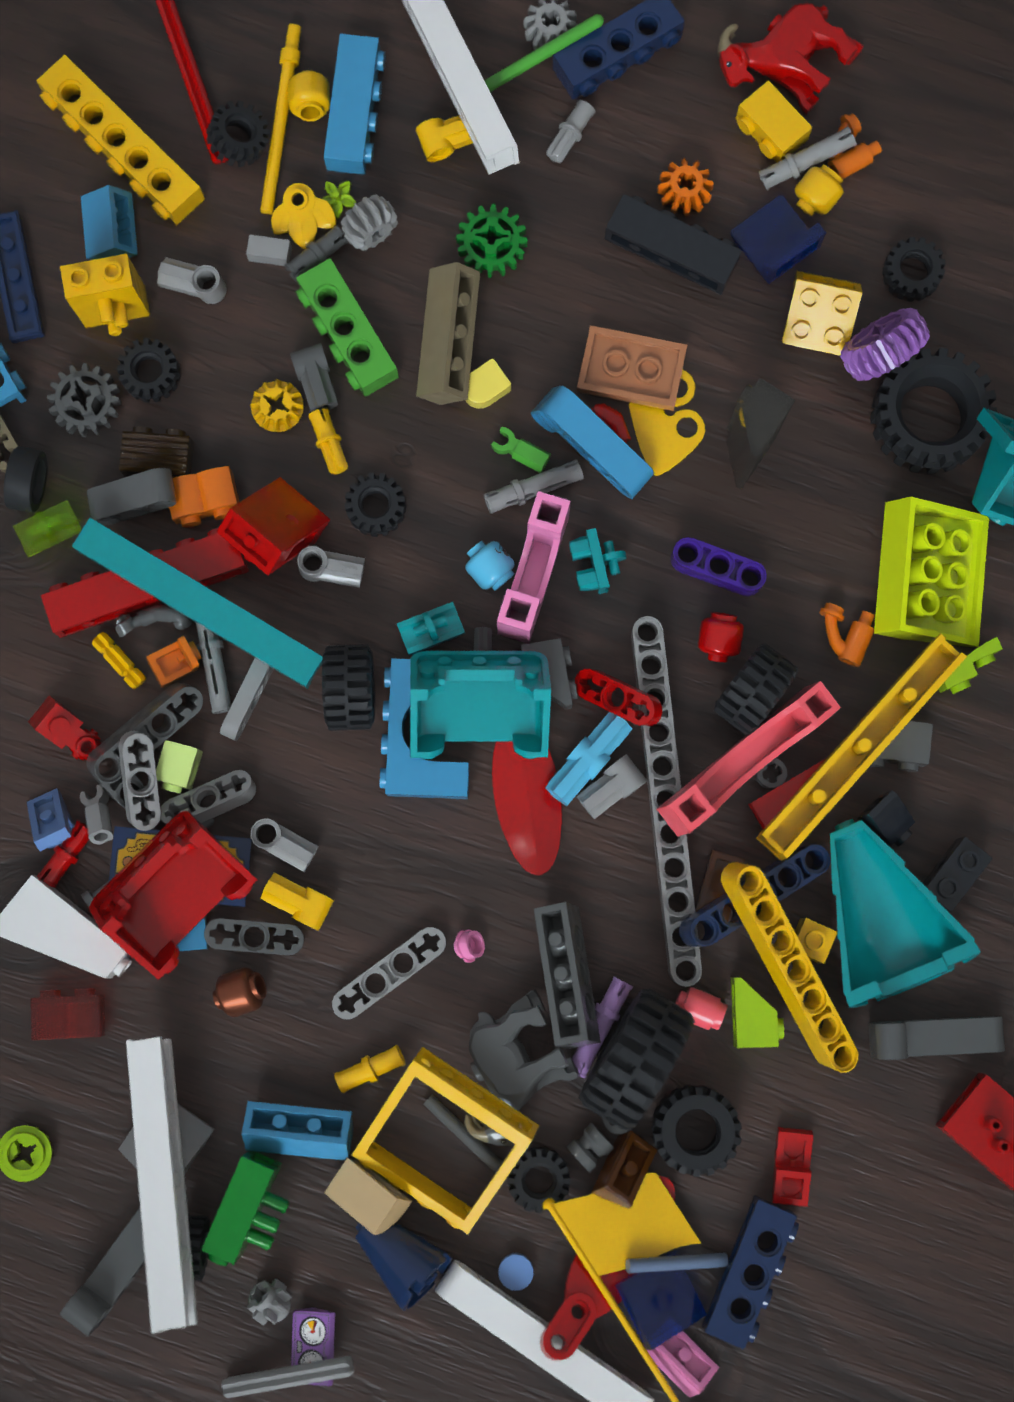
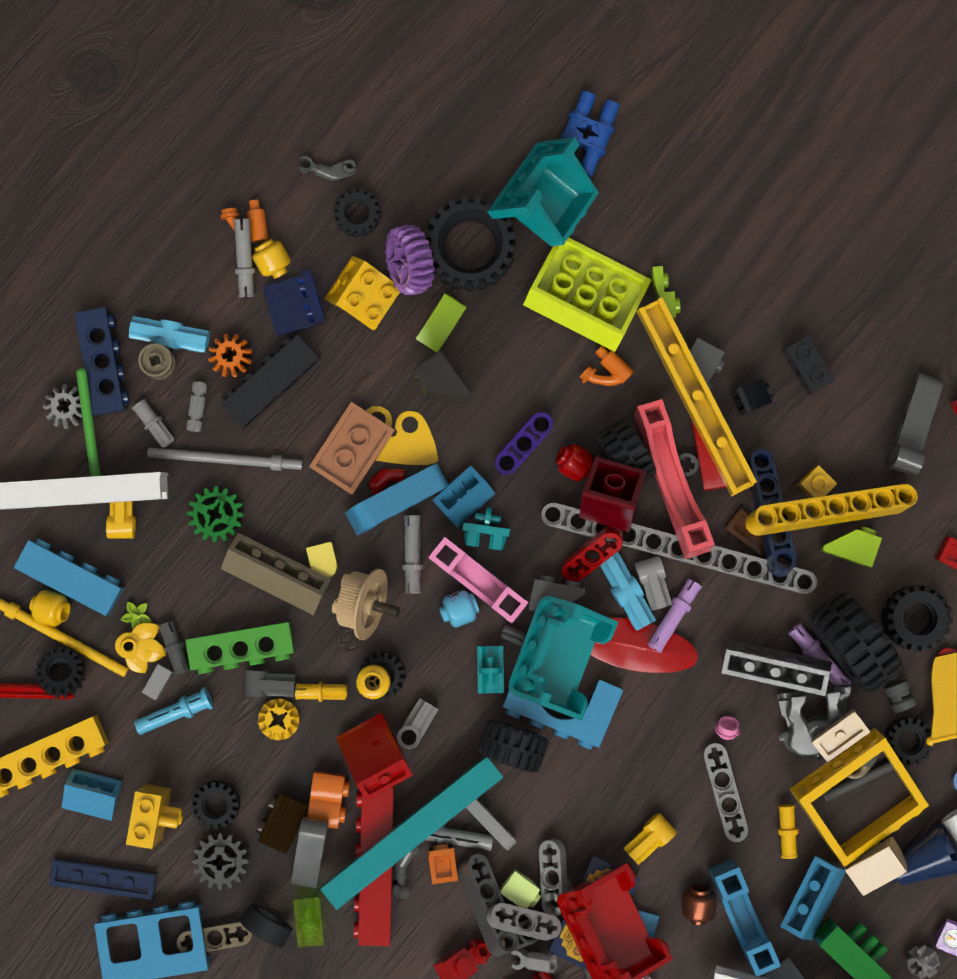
camera: 75 degrees left, 5 degrees up
(118, 660) = (425, 905): yellow axle -> none
(190, 279) = (158, 749): light grey piece -> none
(218, 1074) = (747, 928): none -> dark azure arch
(229, 926) = (648, 894): dark grey beam -> none
(250, 292) = (185, 707): none -> medium azure pin
(286, 845) = (608, 831): light grey piece -> none
(361, 479) = (366, 688): none -> yellow head
(369, 222) = (168, 600): light grey gear -> none
(453, 445) = (363, 602): none -> tan piece
(513, 1085) = (840, 735): none -> tan plate
(522, 451) = (384, 551): bright green bar -> none
(579, 286) = (276, 462): none -> light grey bar
(582, 827) = (673, 617): none -> lavender pin
(609, 173) = (196, 406): none -> light grey axle
(624, 1169) = (926, 678): reddish brown slope -> none
(626, 520) = (464, 496): none -> dark azure brick
(644, 106) = (157, 361): none -> dark tan wheel
(681, 109) = (169, 334): none -> medium azure piece
(701, 683) = (612, 494): none -> dark red slope
(704, 1007) = (833, 580): coral brick -> none
(773, 122) = (206, 271): yellow brick -> none
(786, 52) = (154, 238): red animal -> none
(825, 414) = (441, 322): none -> lime slope
(888, 920) = (823, 427): teal cone -> none
(948, 224) = (332, 173): none -> dark grey arm

